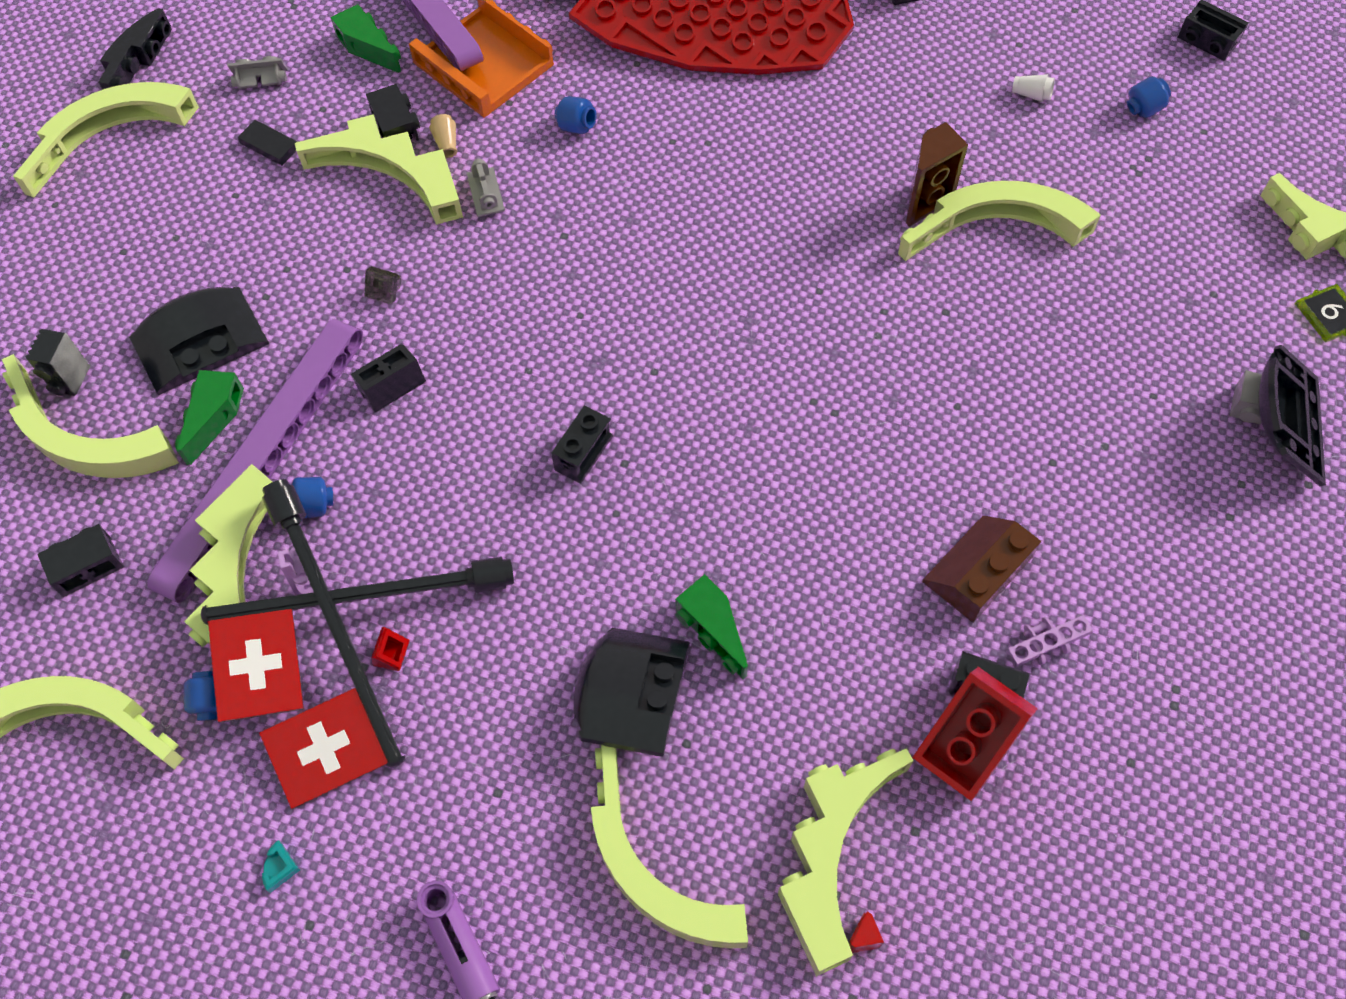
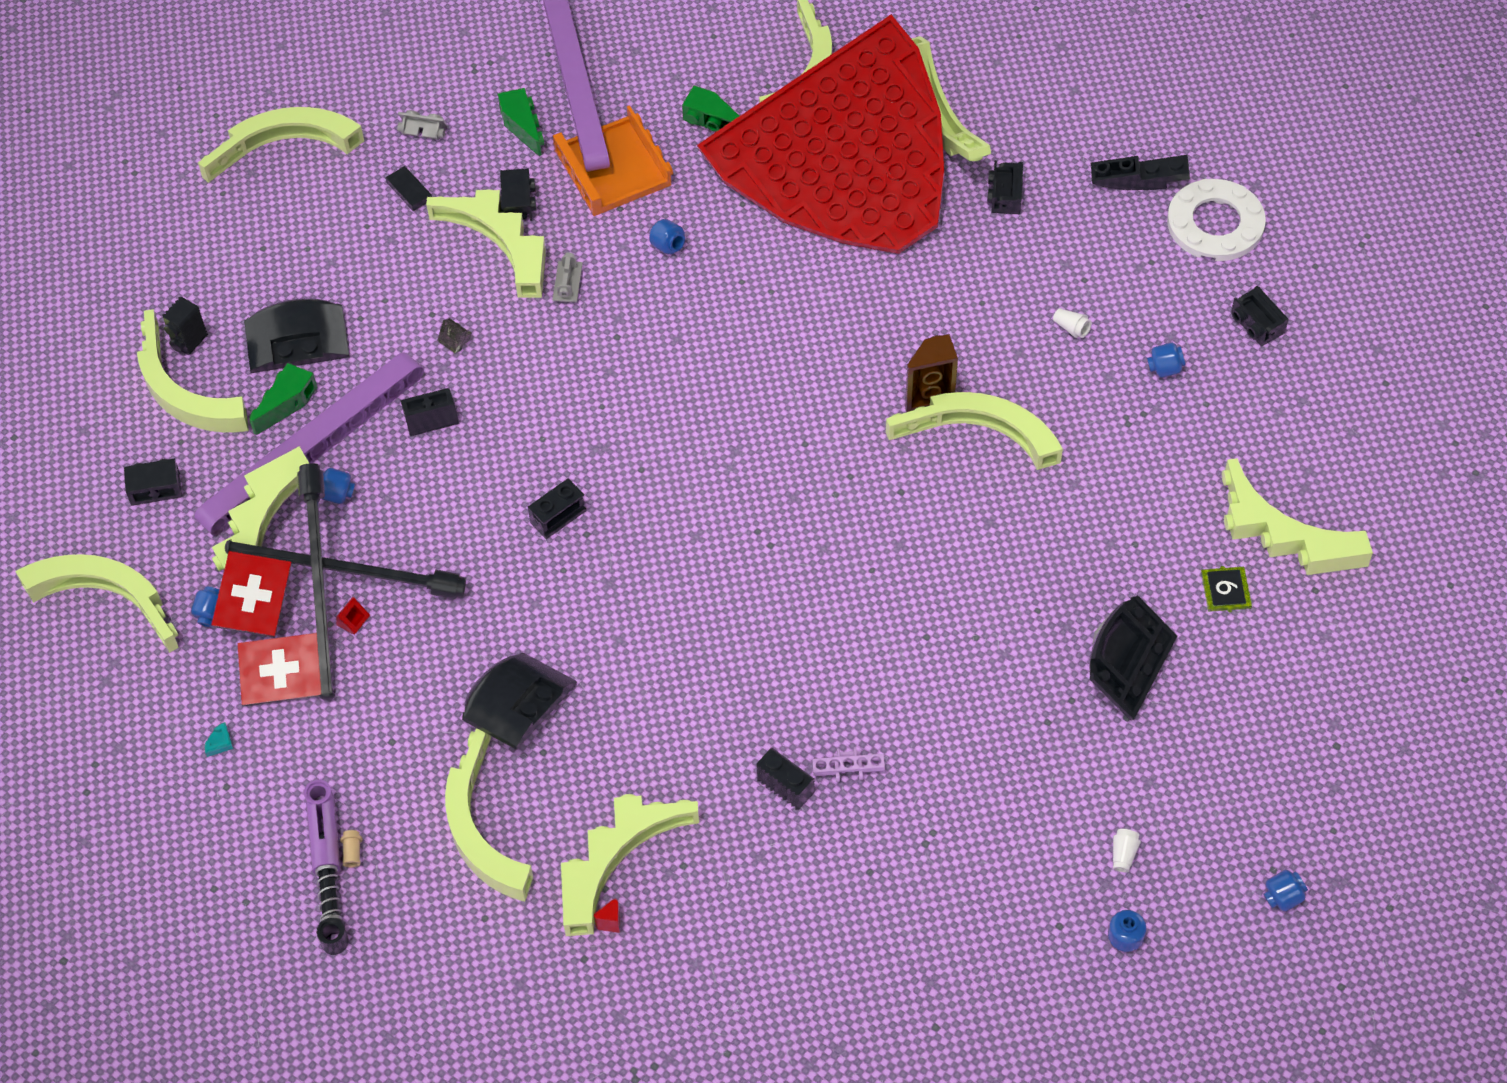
camera: 20 degrees right, 5 degrees down
(134, 48) = (330, 74): black slope -> none
(294, 571) = (301, 534): lavender piece -> none
(444, 133) = (553, 222): tan cone -> none
(503, 956) = (351, 848): none -> tan pin
(710, 615) = (599, 665): green slope -> none
(974, 733) = (749, 804): red brick -> none
(982, 564) = (826, 696): reddish brown slope -> none

